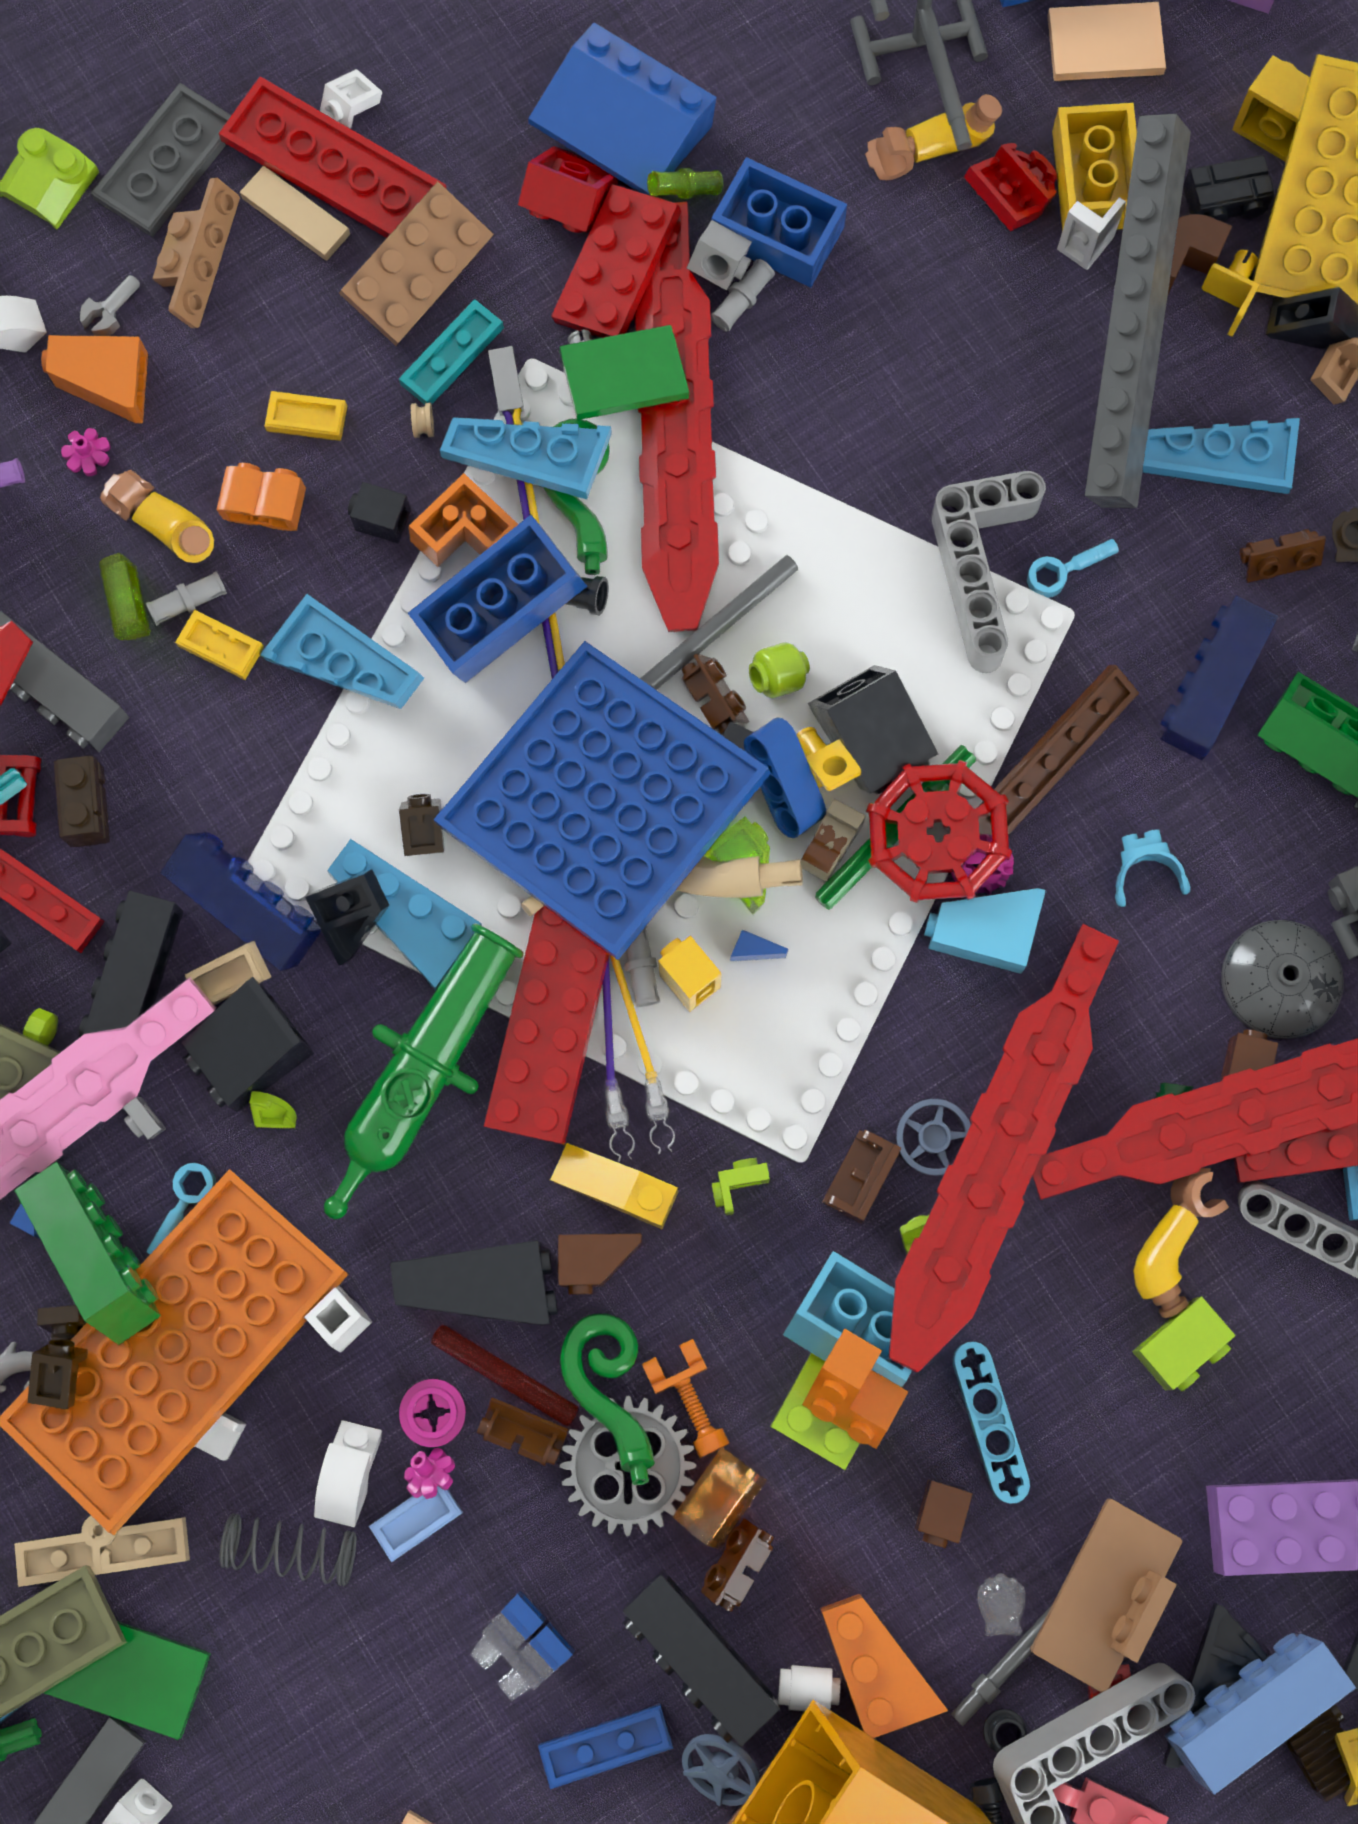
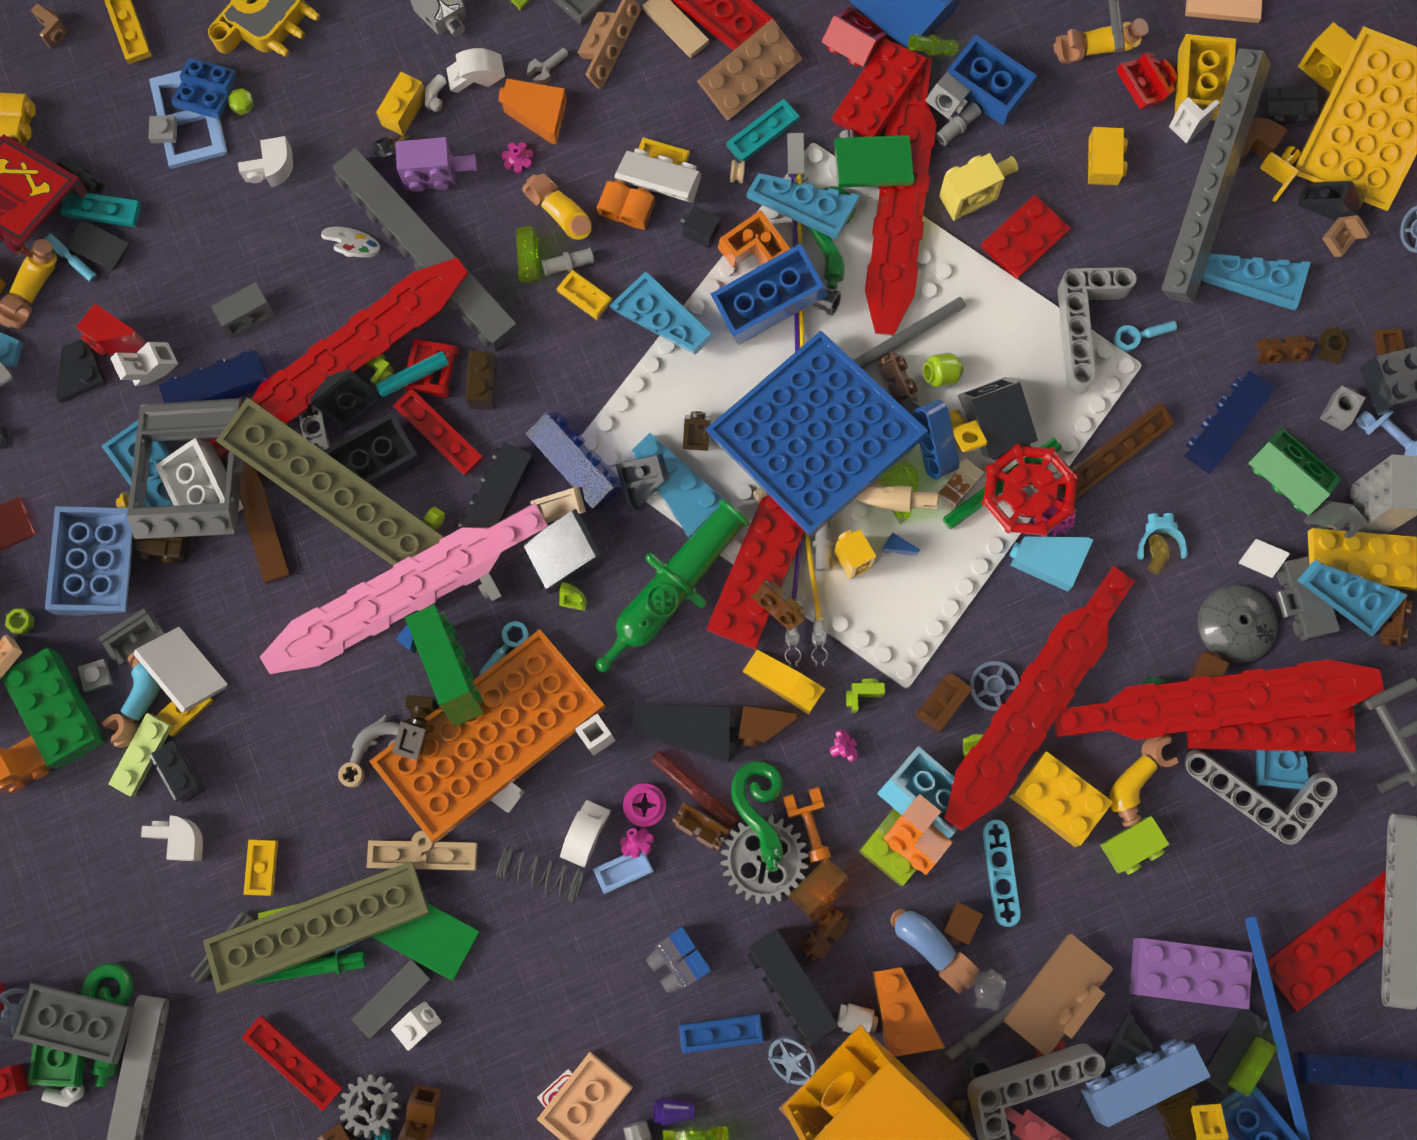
camera: 10 degrees right, 0 degrees up
(303, 444) = (659, 175): none -> white slope
(602, 1080) = (785, 611): none -> reddish brown hinge
(722, 1269) = (844, 746): none -> dark pink plant
(781, 382) = (974, 184): none -> light yellow brick
(870, 449) = (1025, 237): none -> red plate
(902, 1552) = (931, 943): none -> medium blue piece
(971, 308) = (1106, 155): none -> yellow brick
(1062, 1294) = (1061, 799): none -> yellow brick
(1149, 893) = (1159, 552): none -> clear yellow arm
(1305, 874) = (1264, 558): none -> white sticker

